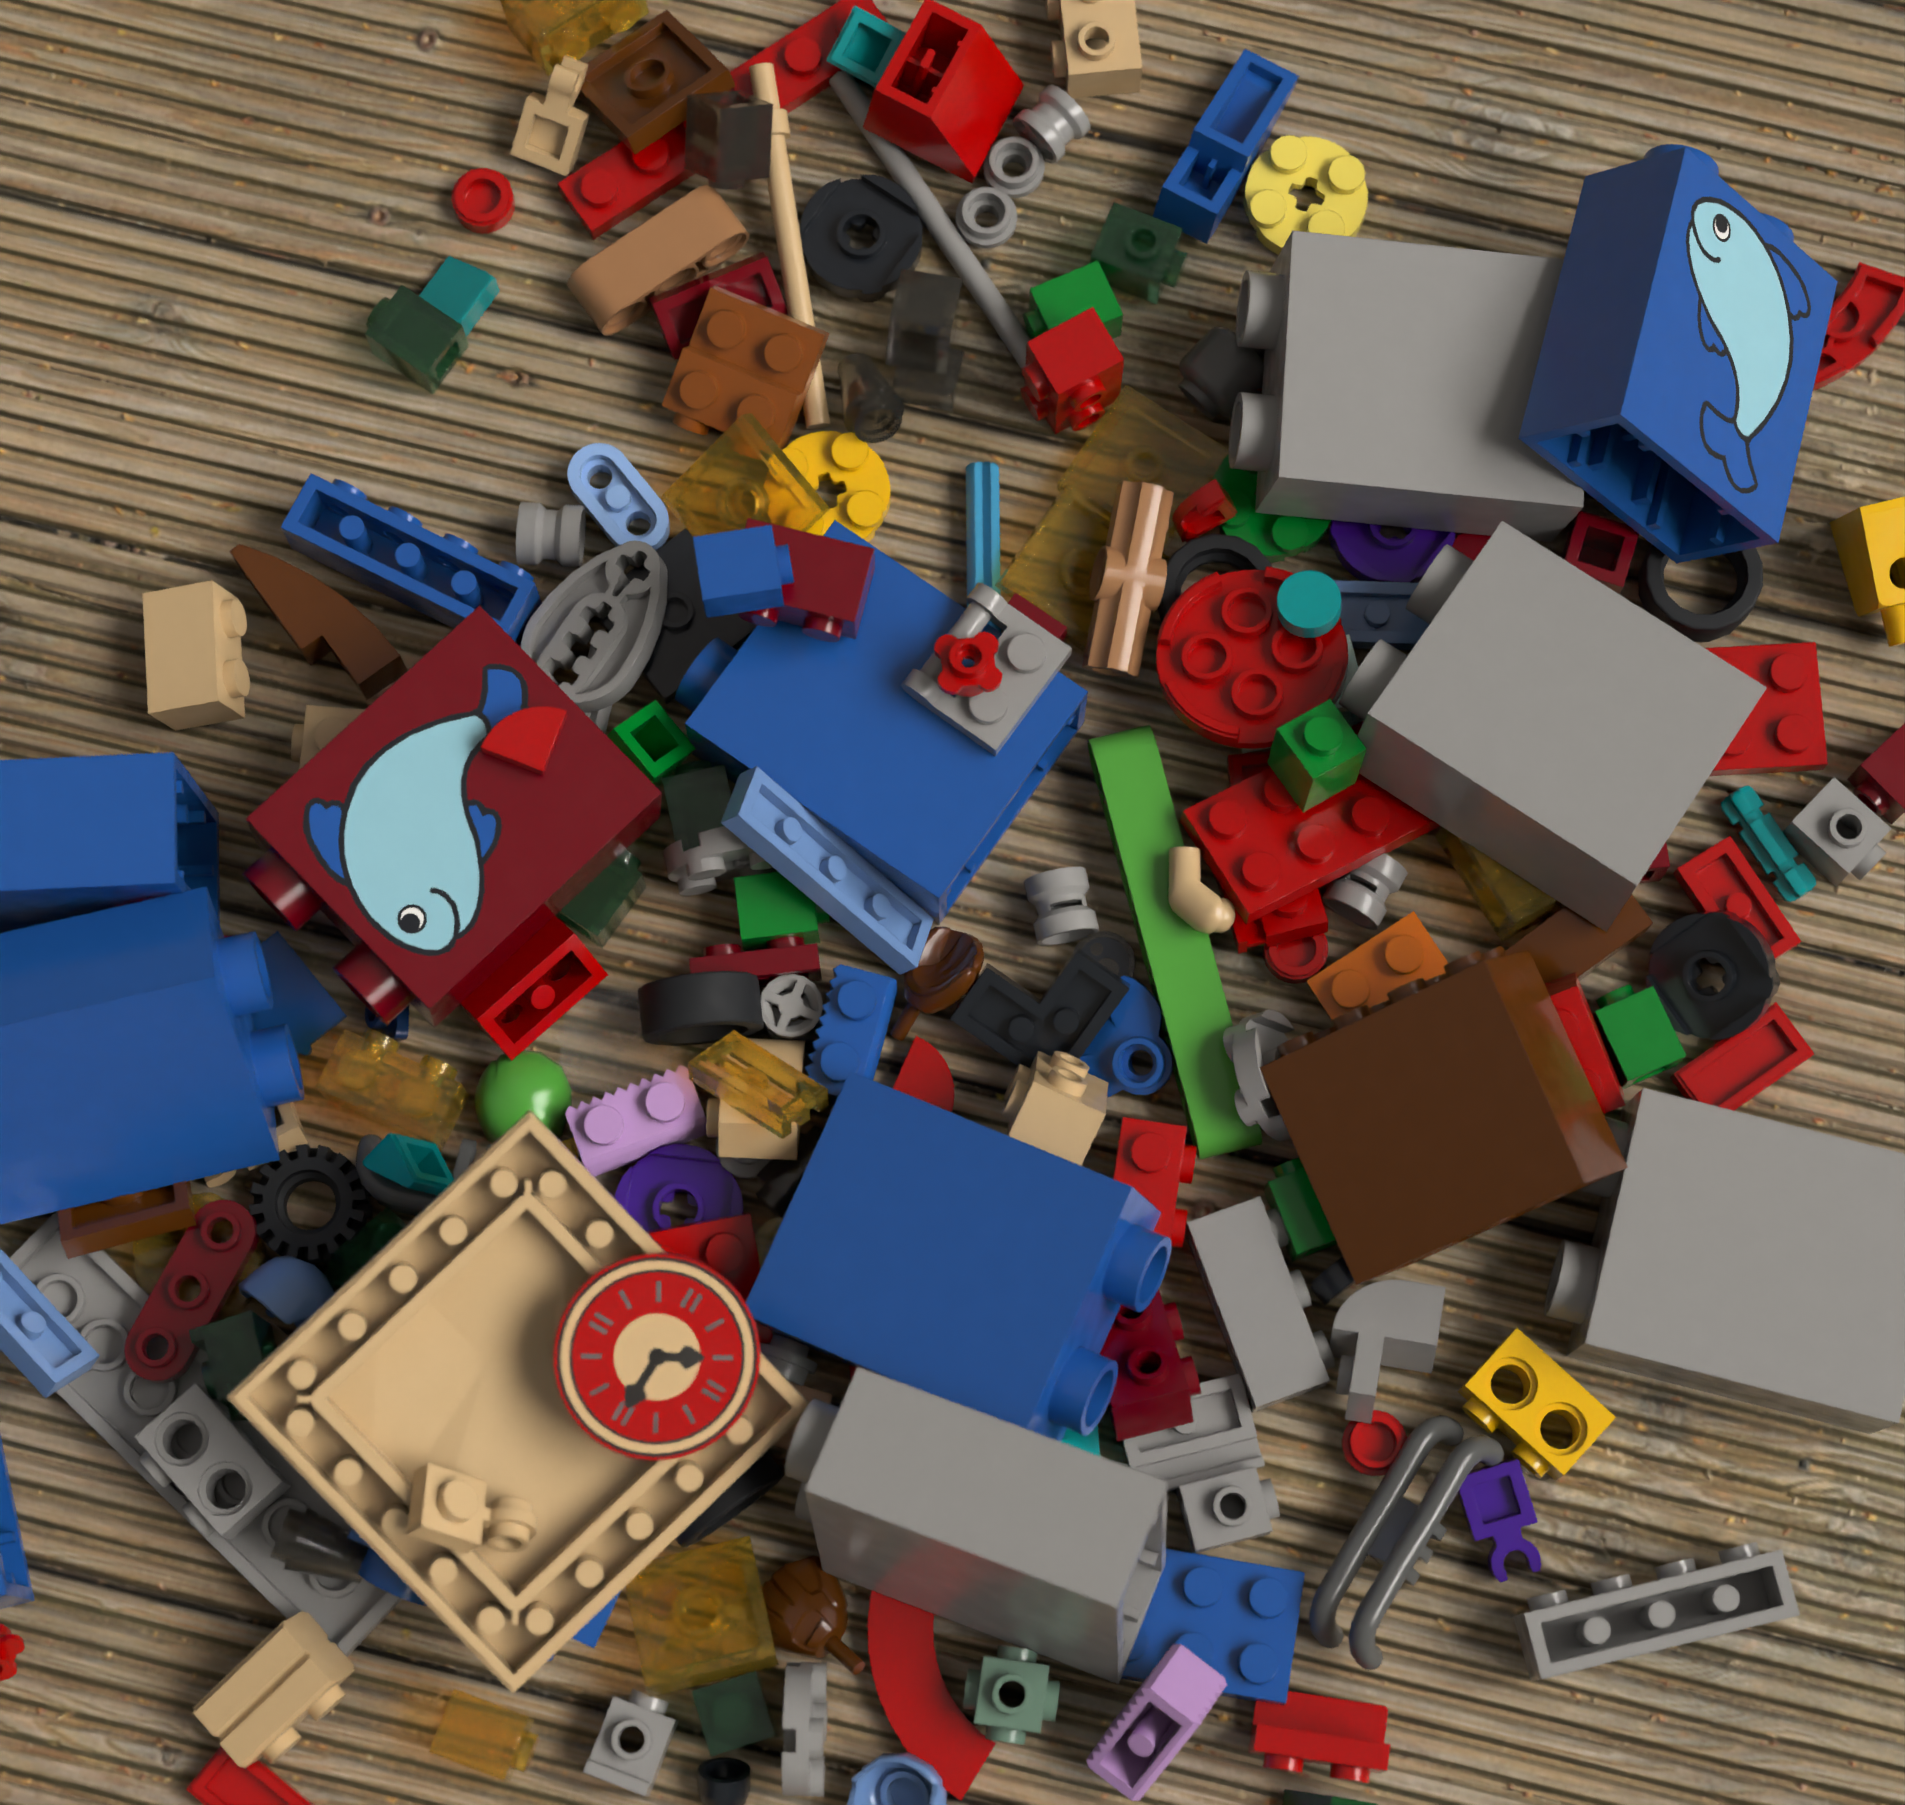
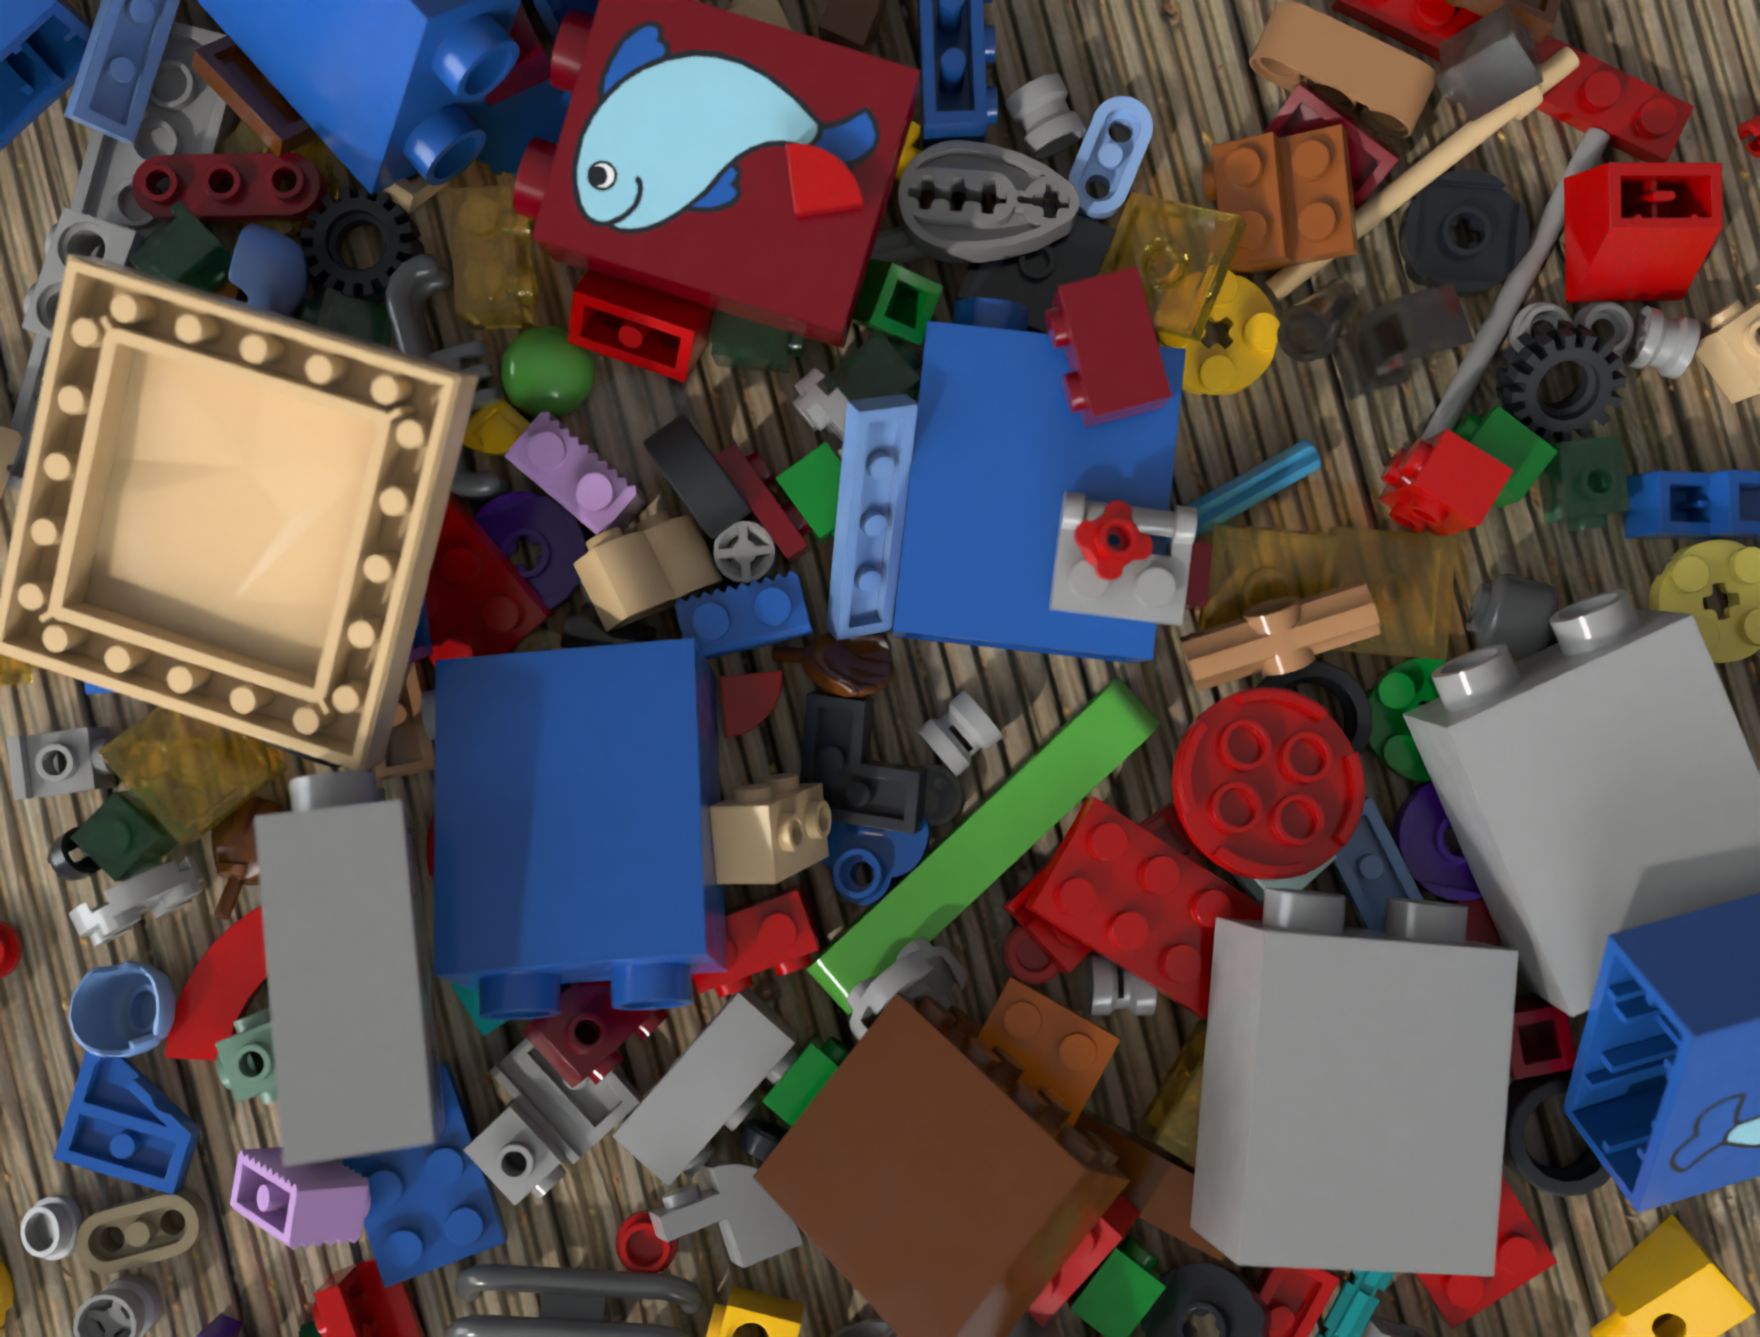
camera: 65 degrees right, 10 degrees up
(410, 1163) = (419, 309): teal slope -> none
(452, 1513) = (94, 509): tan plate -> none
(656, 1356) = (316, 613): tile -> none
(742, 570) = (1079, 285): blue brick -> none
(749, 1088) = (635, 606): clear yellow tile -> none
(865, 46) = (1642, 135): teal slope -> none
(1007, 233) = (1575, 412): none -> black tyre
(1193, 899) = (1022, 845): tan arm -> none
(1203, 511) = (1378, 668): red tile -> none
(1309, 604) = (1343, 811): teal tile -> none
(1316, 755) = (1207, 892): green brick -> none

